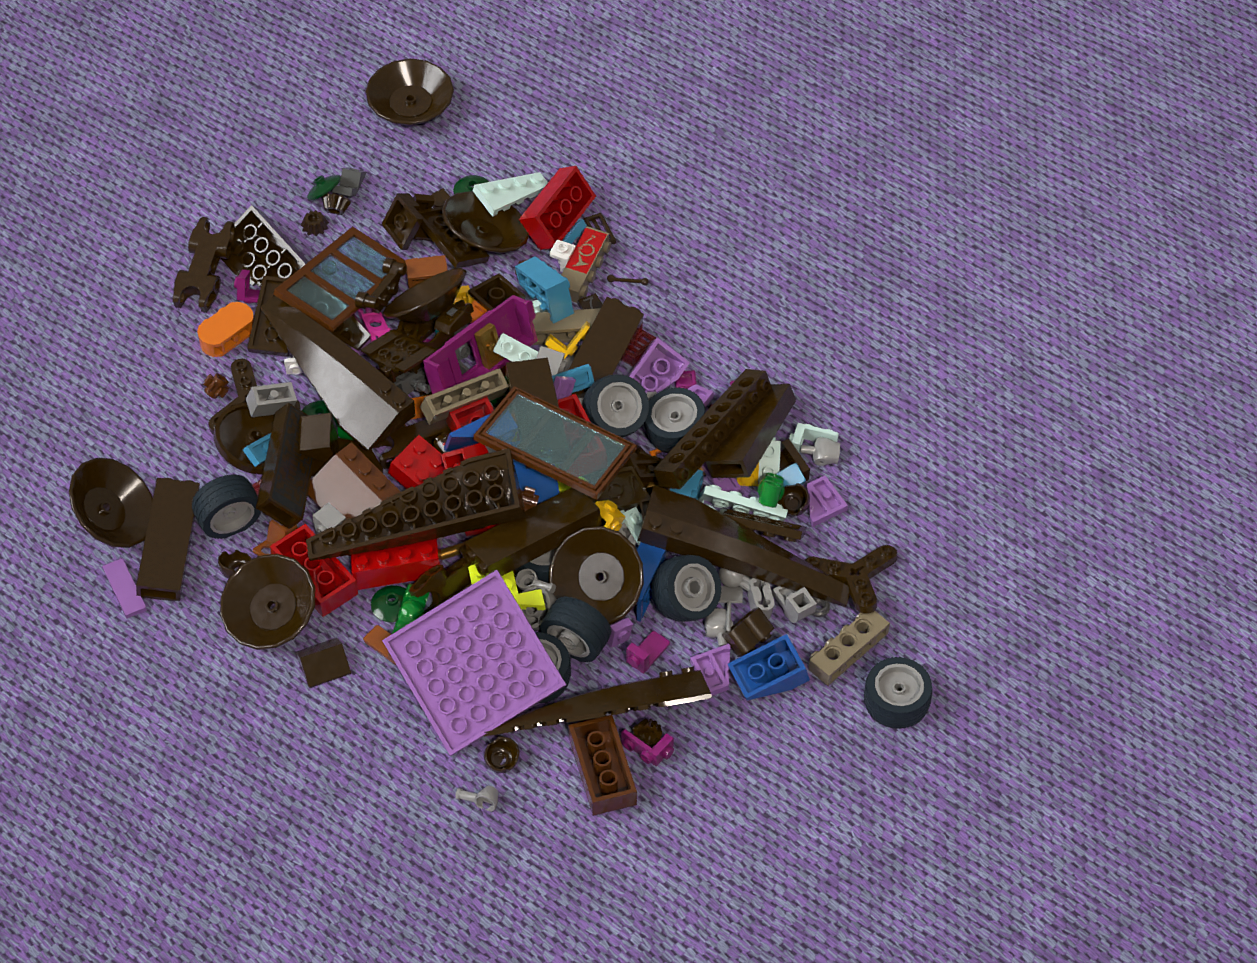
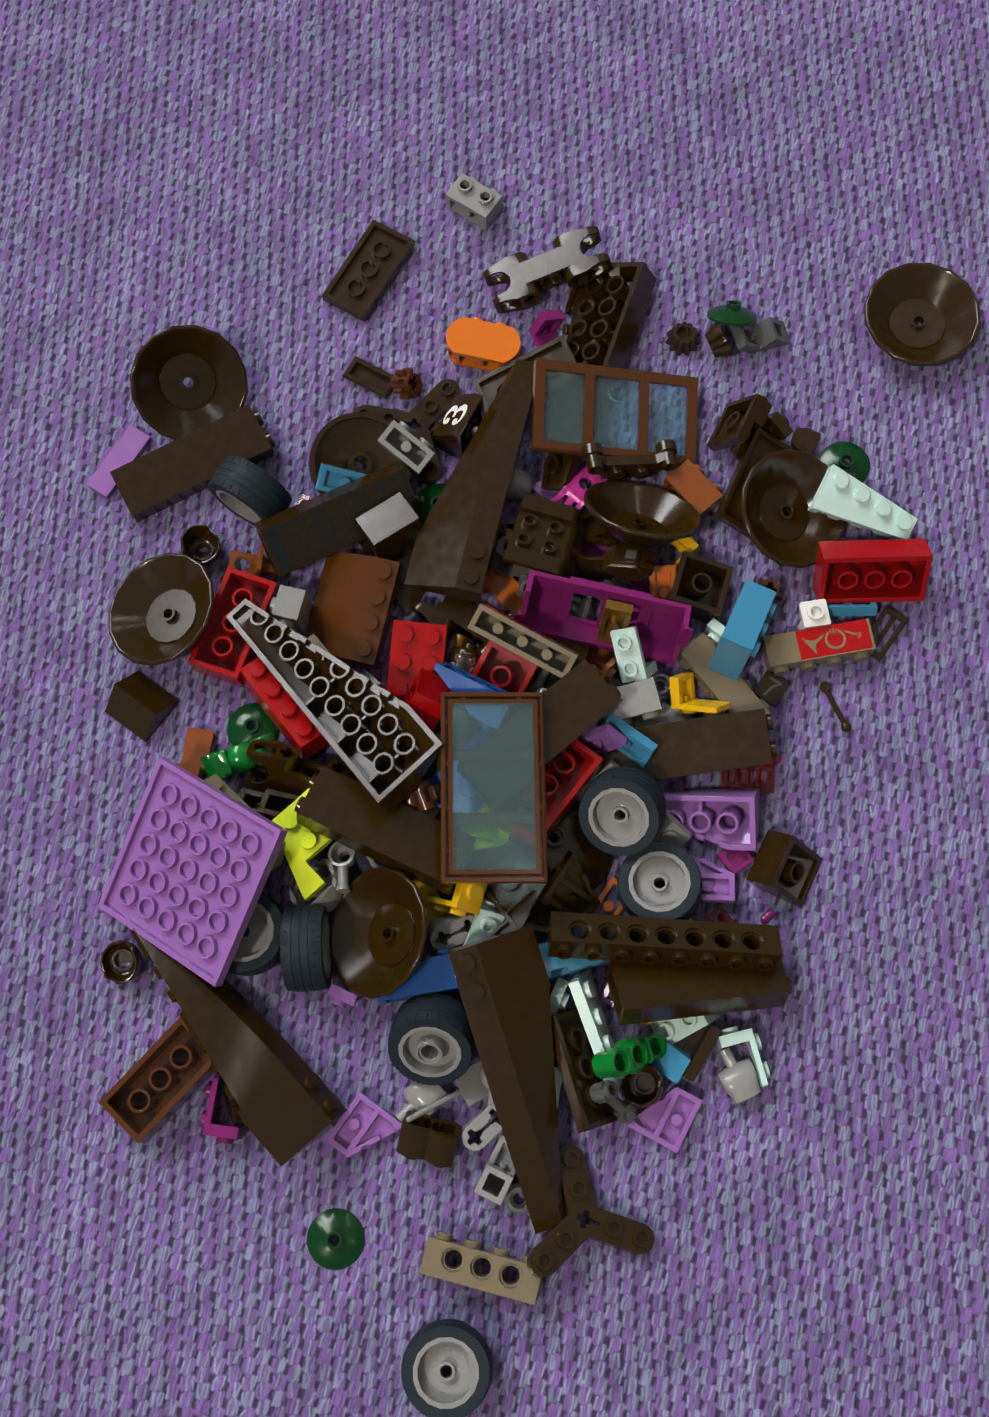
camera: 65 degrees right, 20 degrees up
(109, 366) = (368, 270): none -> dark brown plate
(113, 280) = (474, 201): none -> light grey brick
(191, 407) = (369, 377): none -> dark brown tile
(272, 364) = (455, 428): none -> dark brown slope
(488, 794) = (65, 976): light grey bar -> none
(647, 652) = (341, 1037): magenta bracket -> none
(710, 357) = (784, 867): none -> dark brown slope
(769, 669) = (391, 1194): blue slope -> none
(776, 732) = (348, 1230): none -> dark green dish
(785, 515) = (608, 1092): none -> dark grey bar

